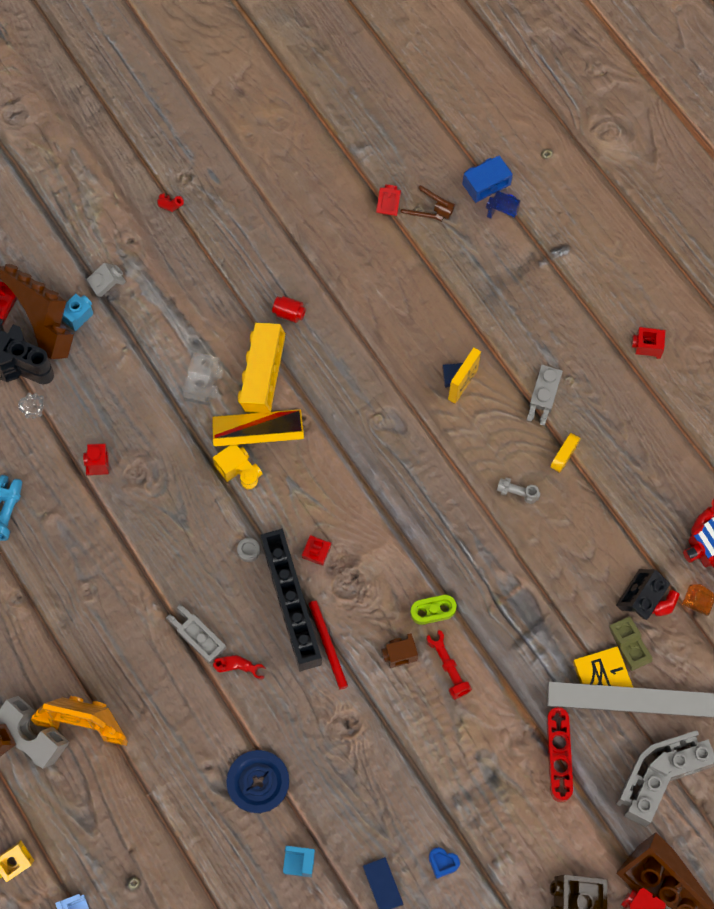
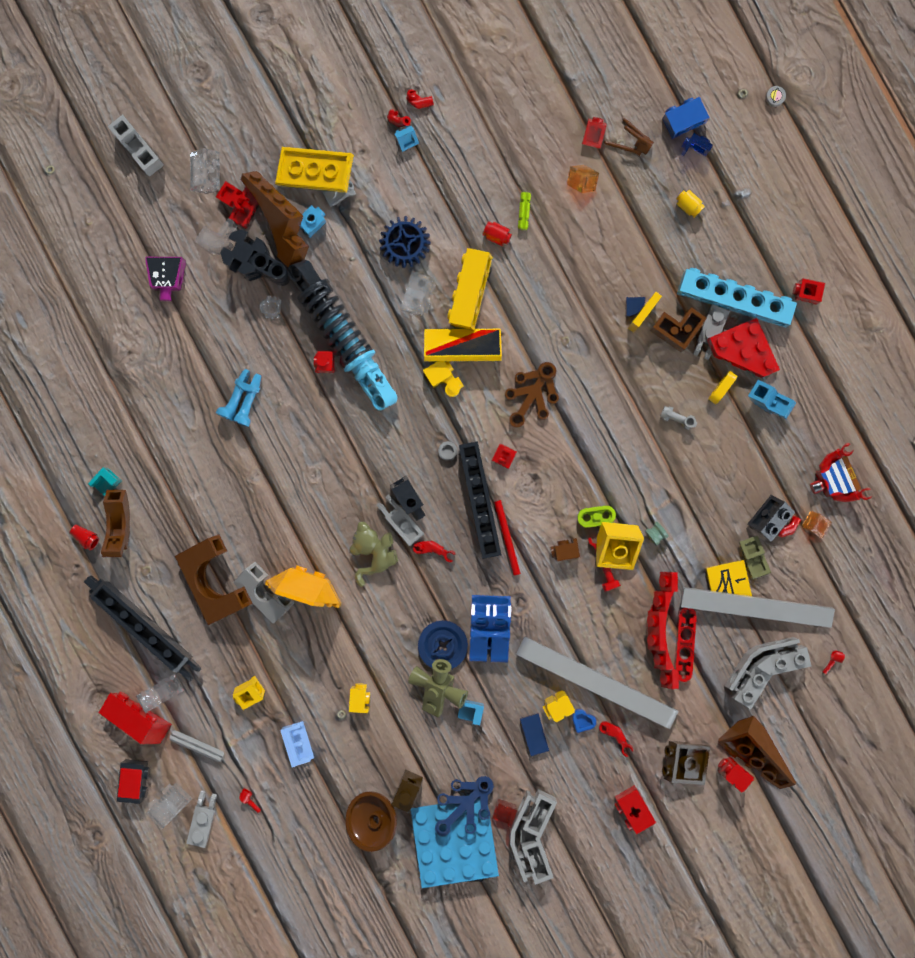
camera: 10 degrees right, 20 degrees up
(77, 257) = (314, 169): none -> yellow tile
(115, 425) = (340, 332): none -> black piece
(155, 856) = (359, 698): none -> yellow brick
(156, 661) = (366, 542): none -> olive animal
(180, 220) = (406, 138): none -> dark azure tile
(191, 185) = (418, 102): none -> red arm
(198, 317) = (400, 225): none -> dark blue gear
(199, 594) = (403, 491): none -> black torso
(254, 830) = (438, 687): none -> olive brick
(302, 753) = (490, 619): none -> blue connector
(318, 285) = (524, 210): none -> lime axle
(345, 476) = (534, 392): none -> reddish brown plant
(380, 247) = (582, 178): none -> clear orange panel
(409, 840) = (558, 706): none -> yellow brick
(456, 810) = (597, 682): none -> light grey beam
(463, 639) = (618, 545): none -> yellow slope
(485, 873) = (616, 732): none -> red arm
(502, 262) = (689, 203): none -> yellow brick
(503, 395) = (678, 333): none -> reddish brown brick
(508, 623) = (656, 533): none -> sand green wheel
(522, 739) = (657, 629): none -> red piece
(576, 364) = (784, 305): none -> medium azure brick
(582, 153) = (775, 96): none -> light grey tile
(585, 407) = (745, 348): none -> red plate
(618, 460) = (770, 400): none -> dark azure brick

